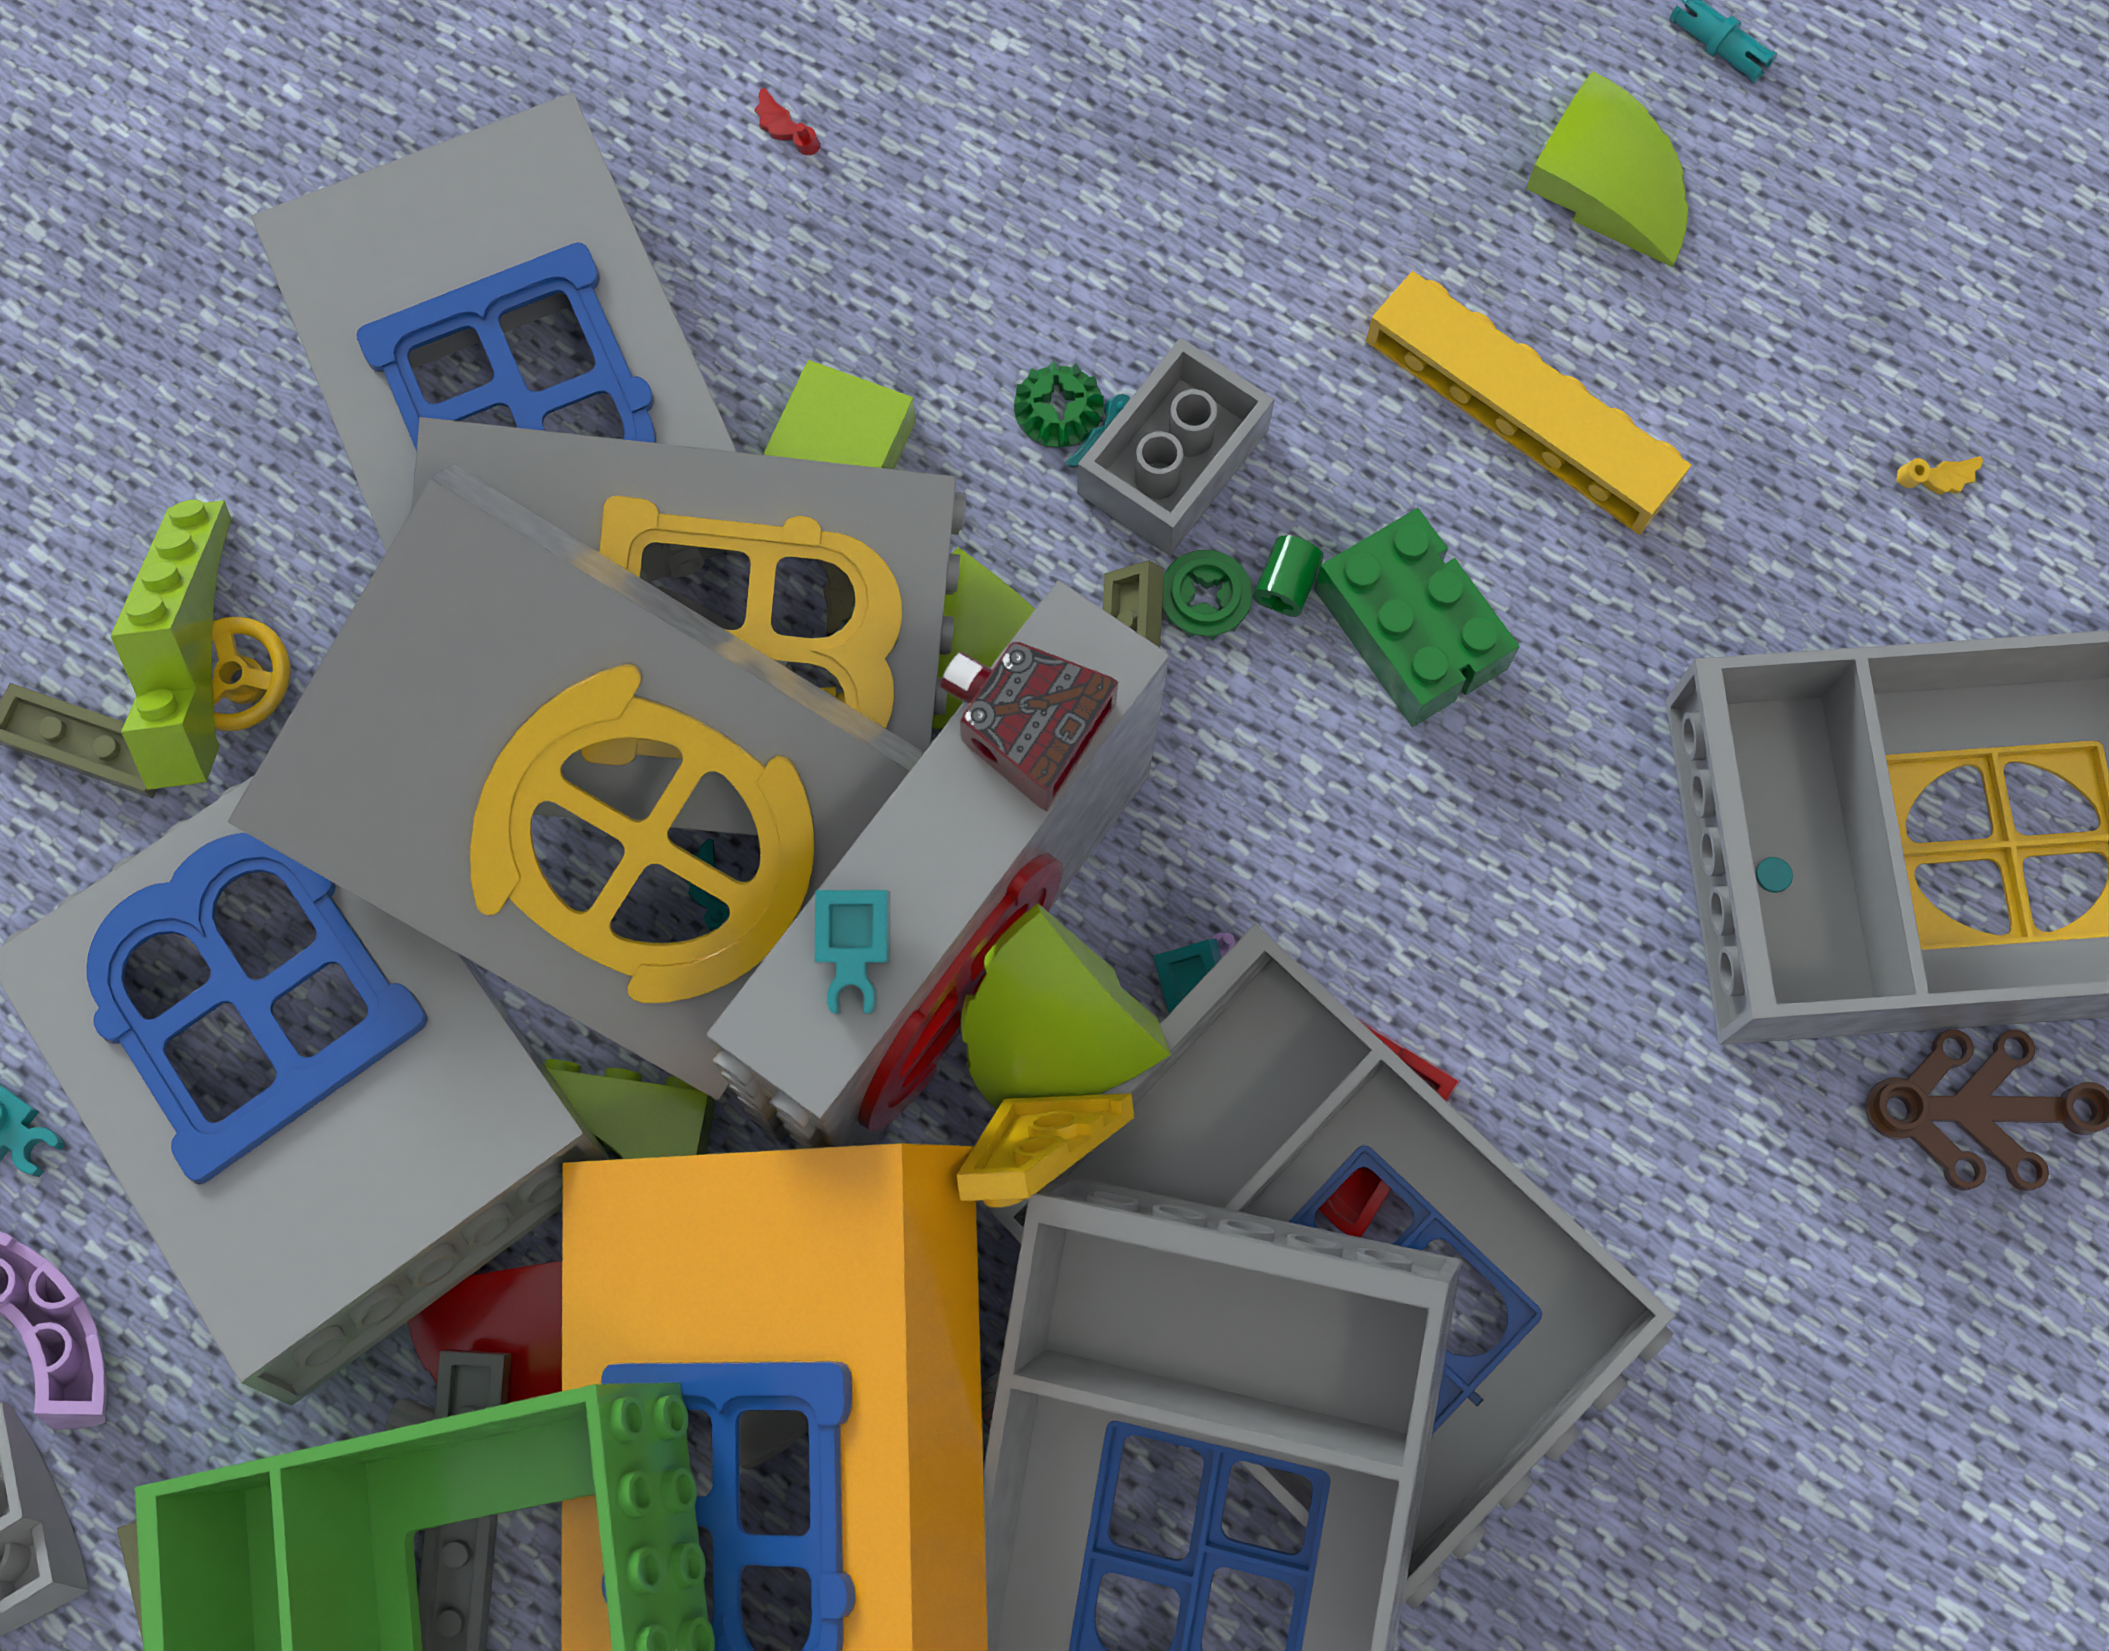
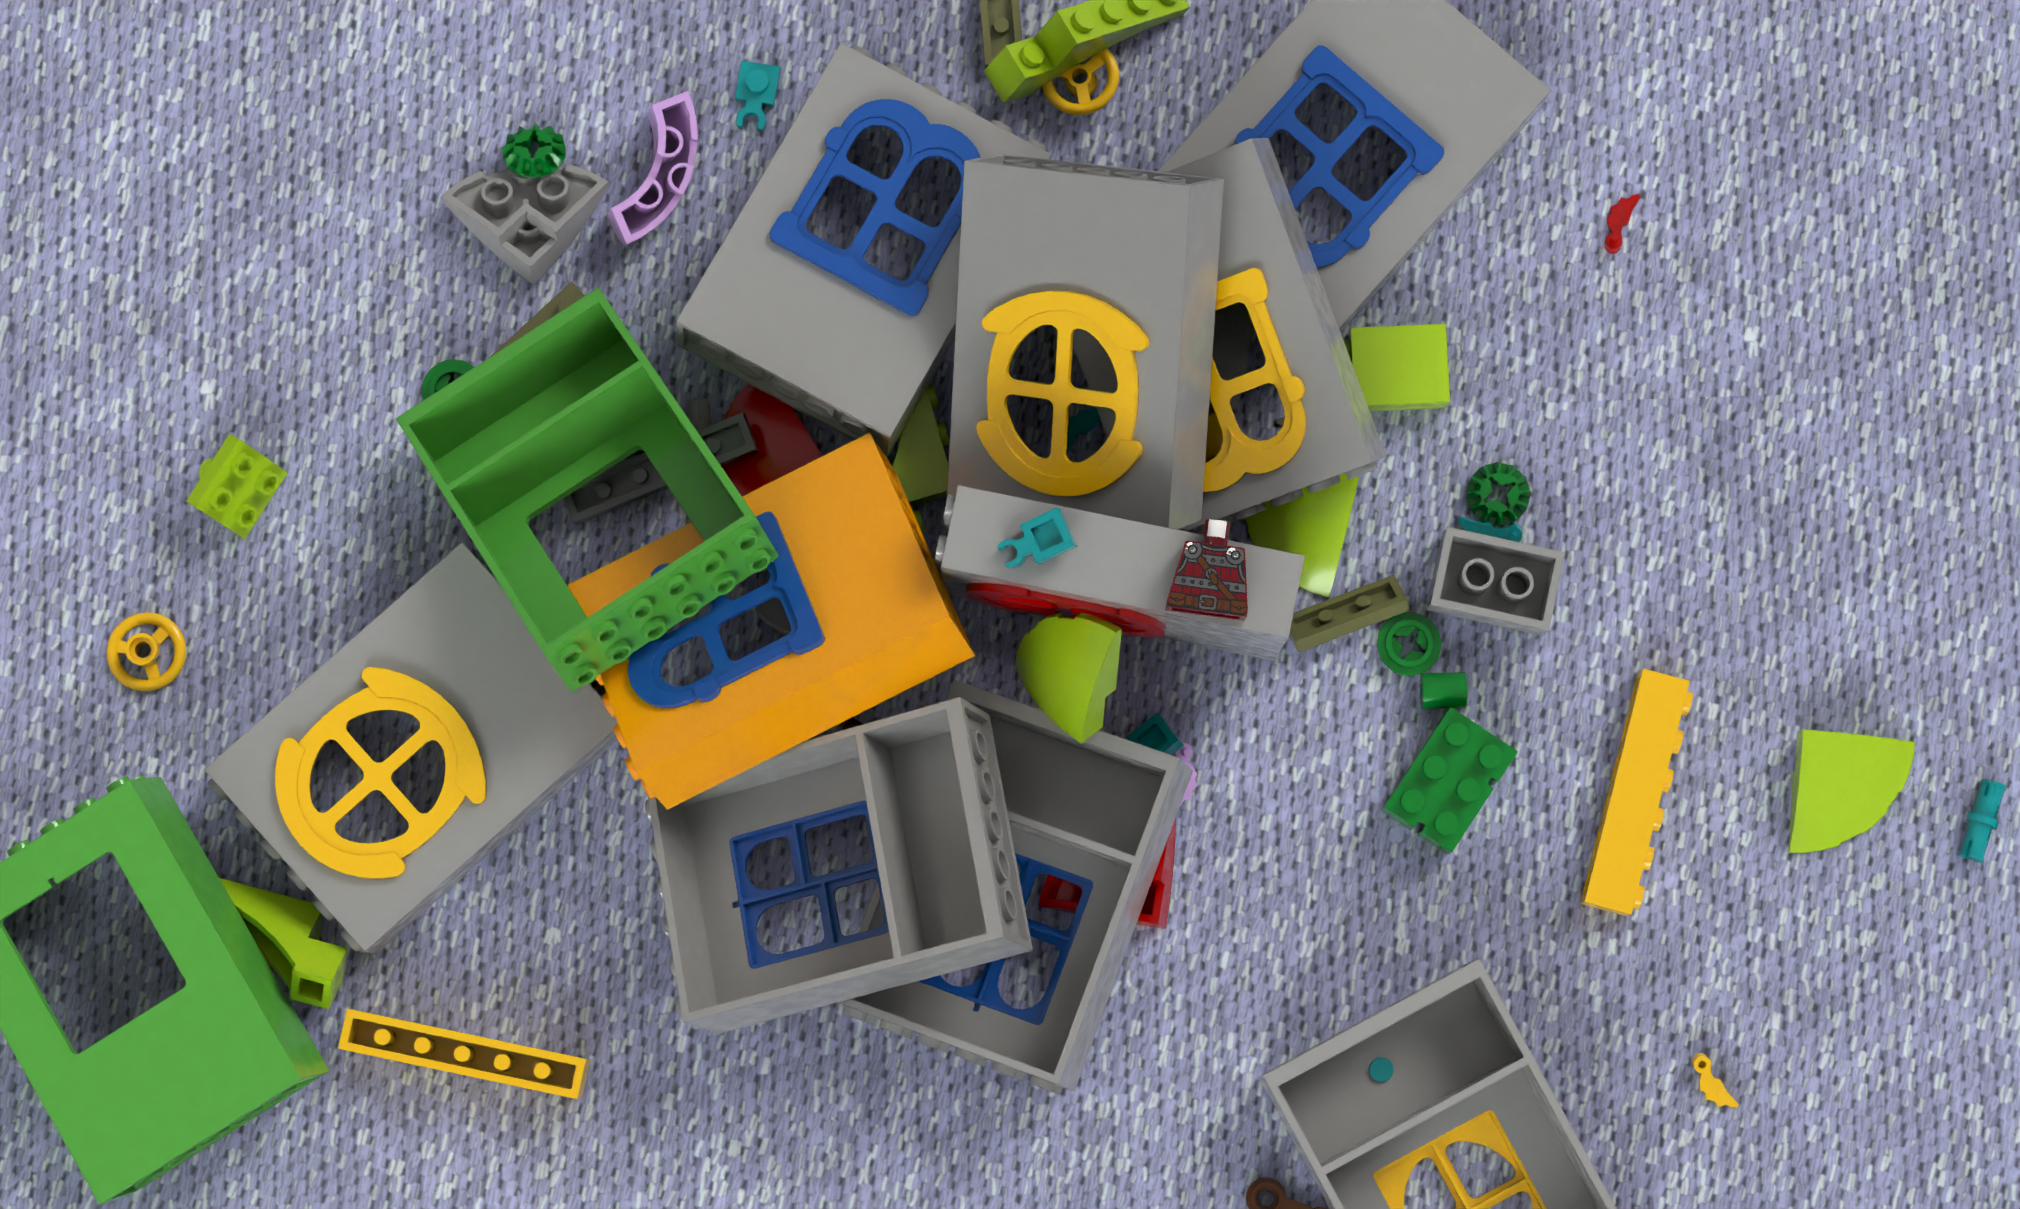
camera: 65 degrees right, 10 degrees up
(1036, 1142) = (997, 689): yellow wing -> none

